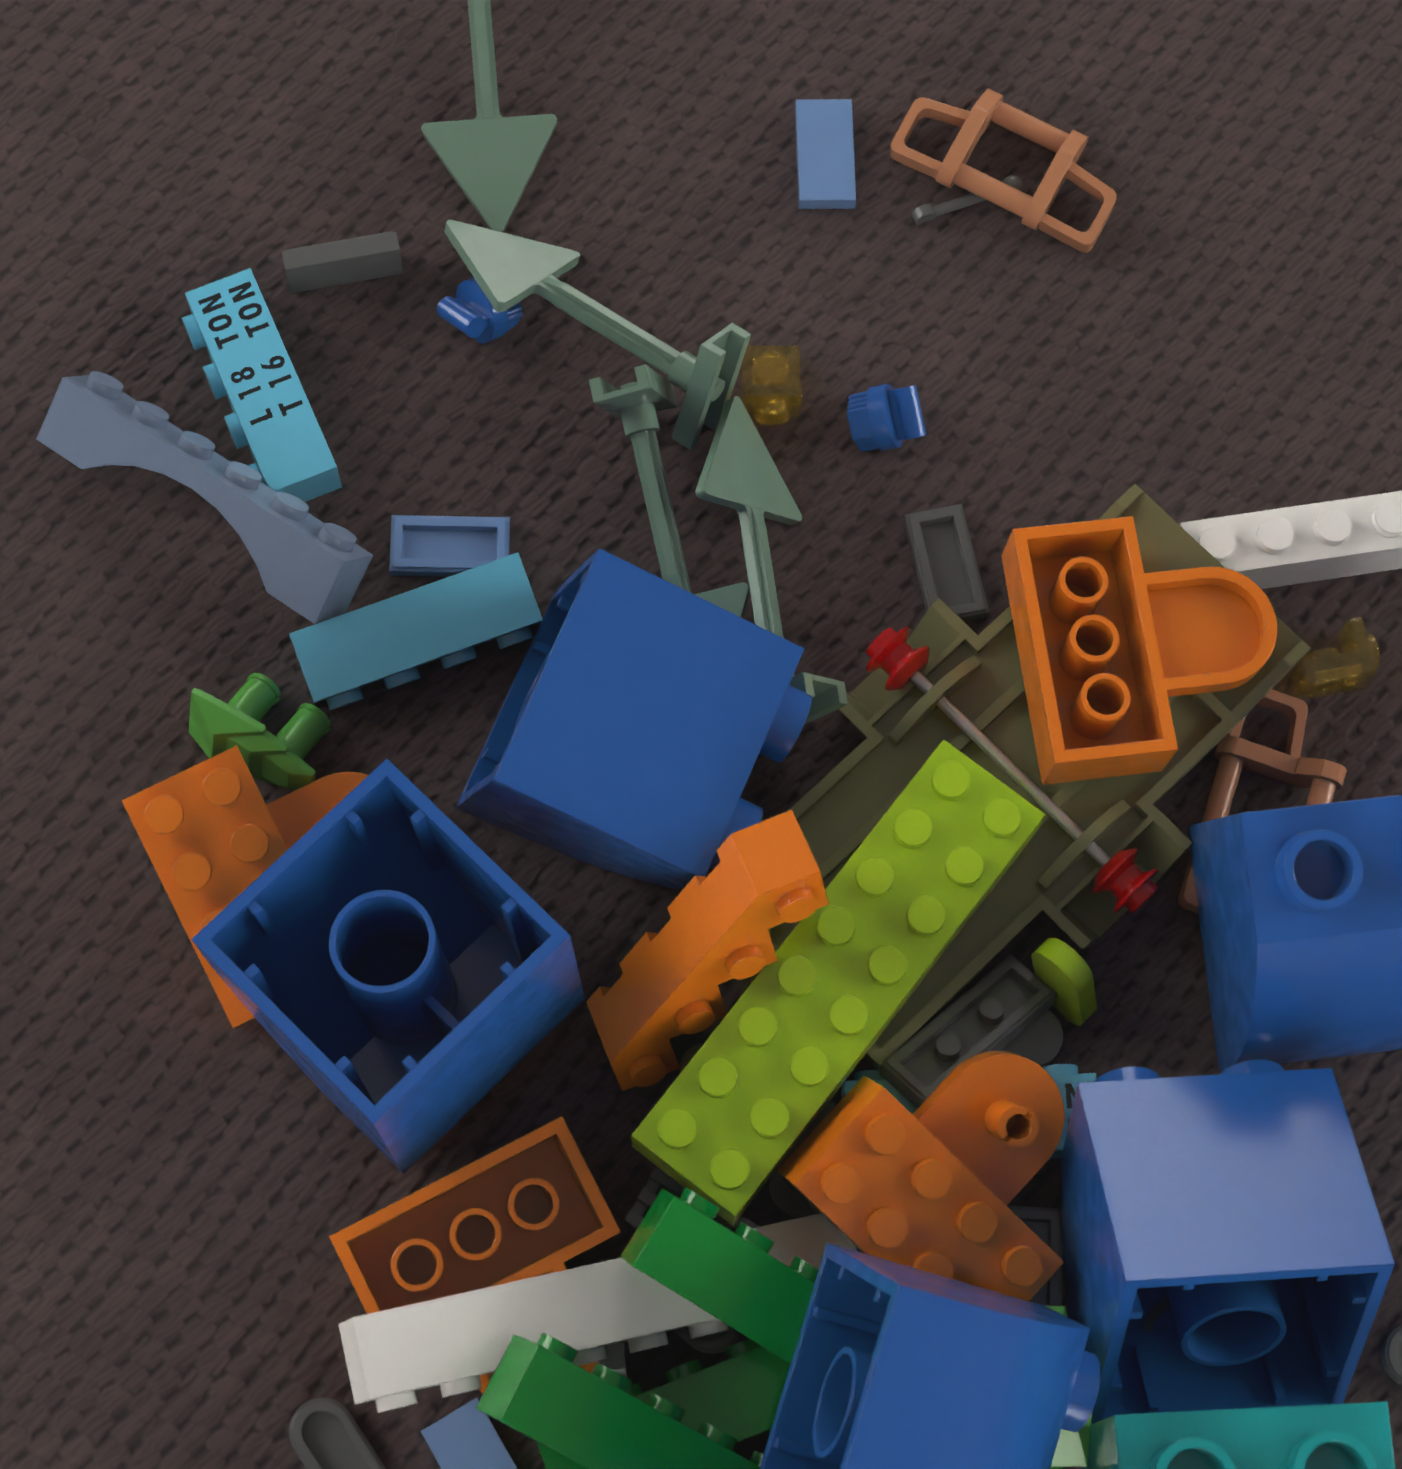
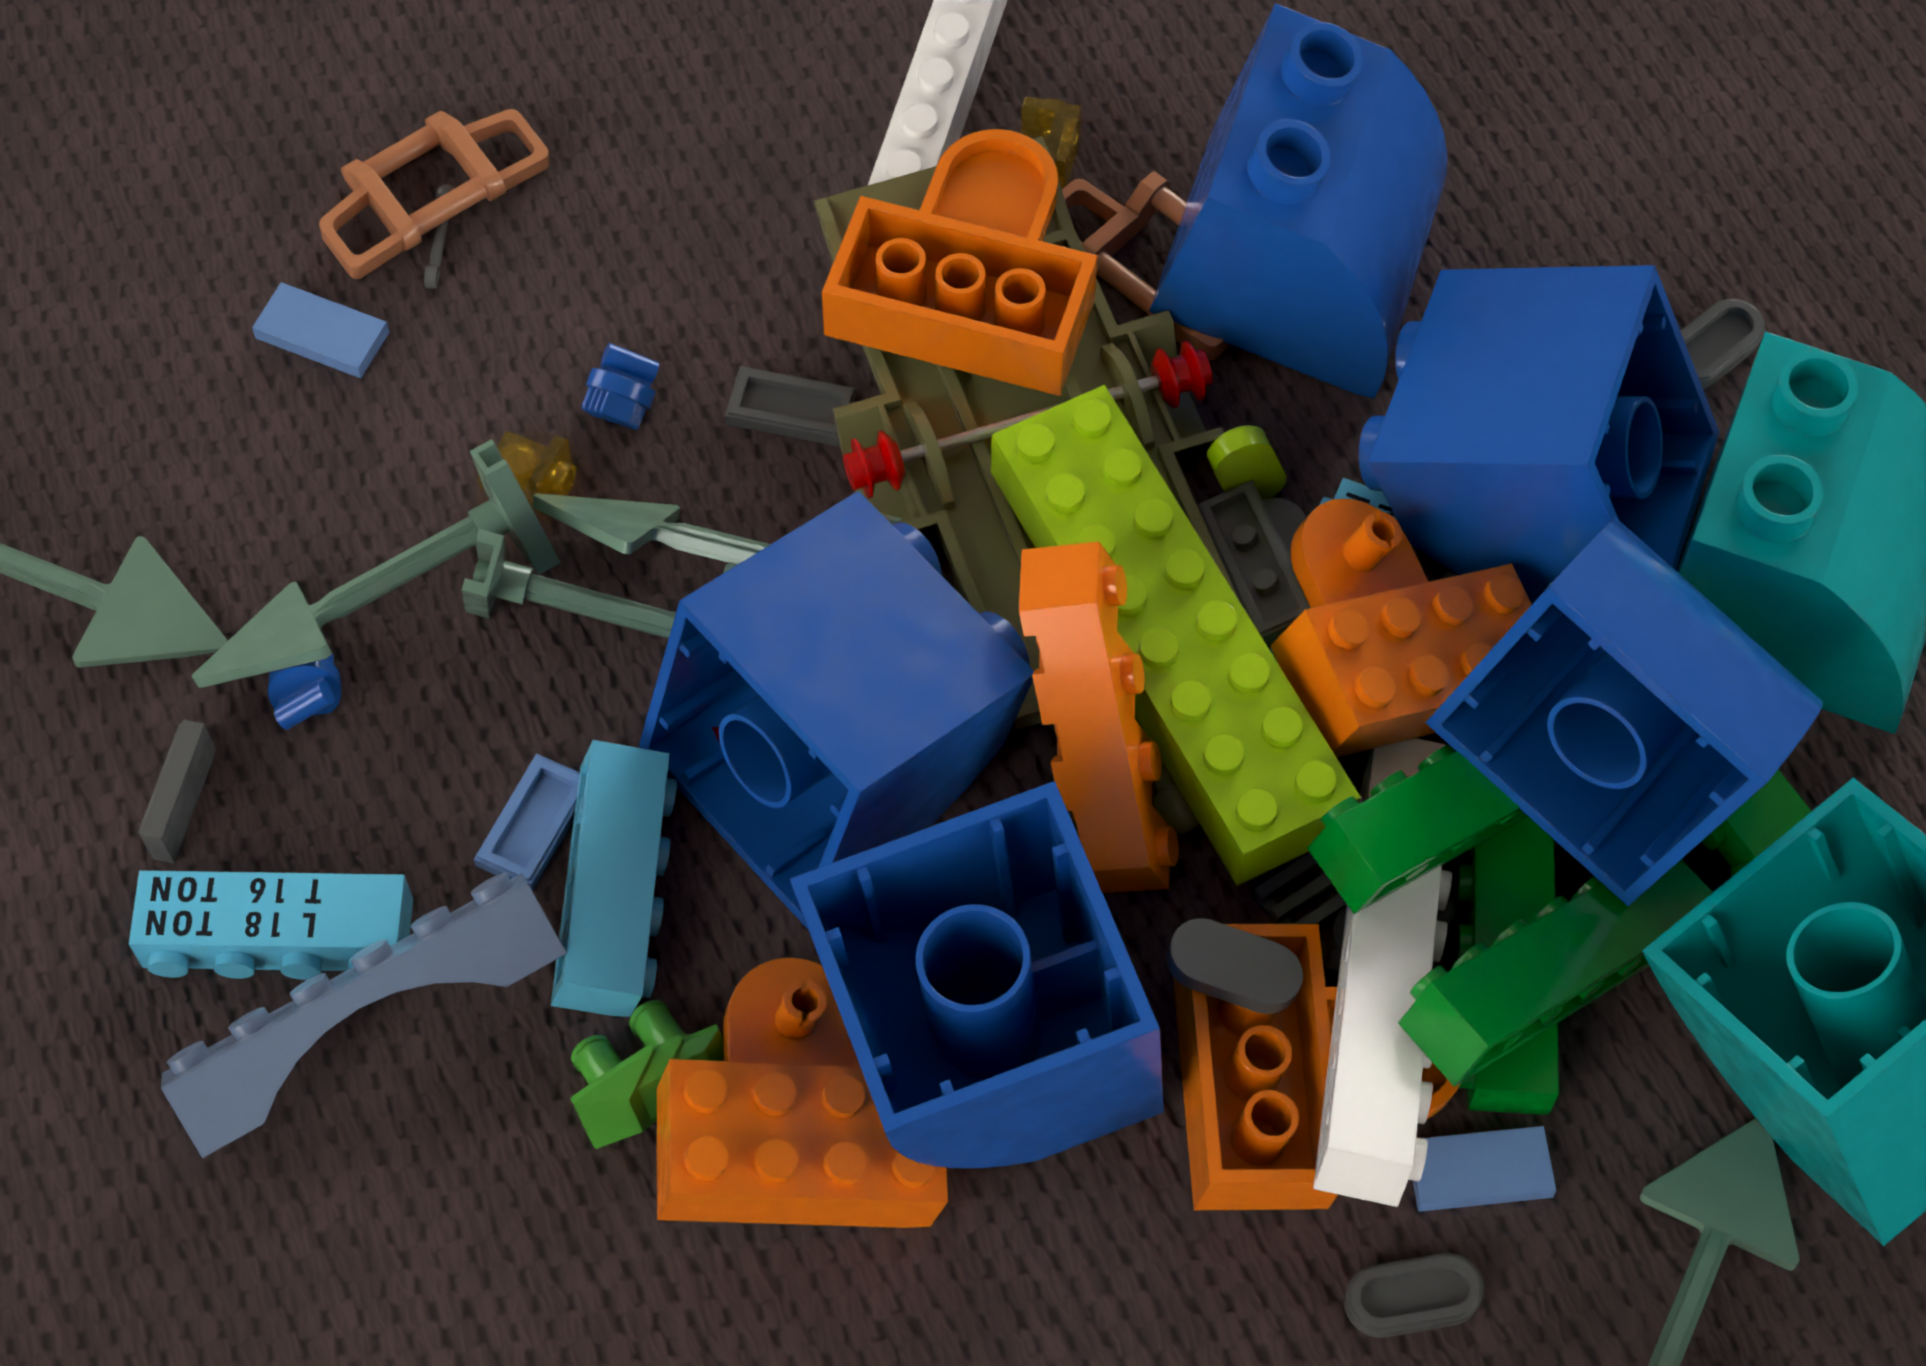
camera: 60 degrees left, 10 degrees down
(536, 1173) = (1234, 966): none -> dark grey tile

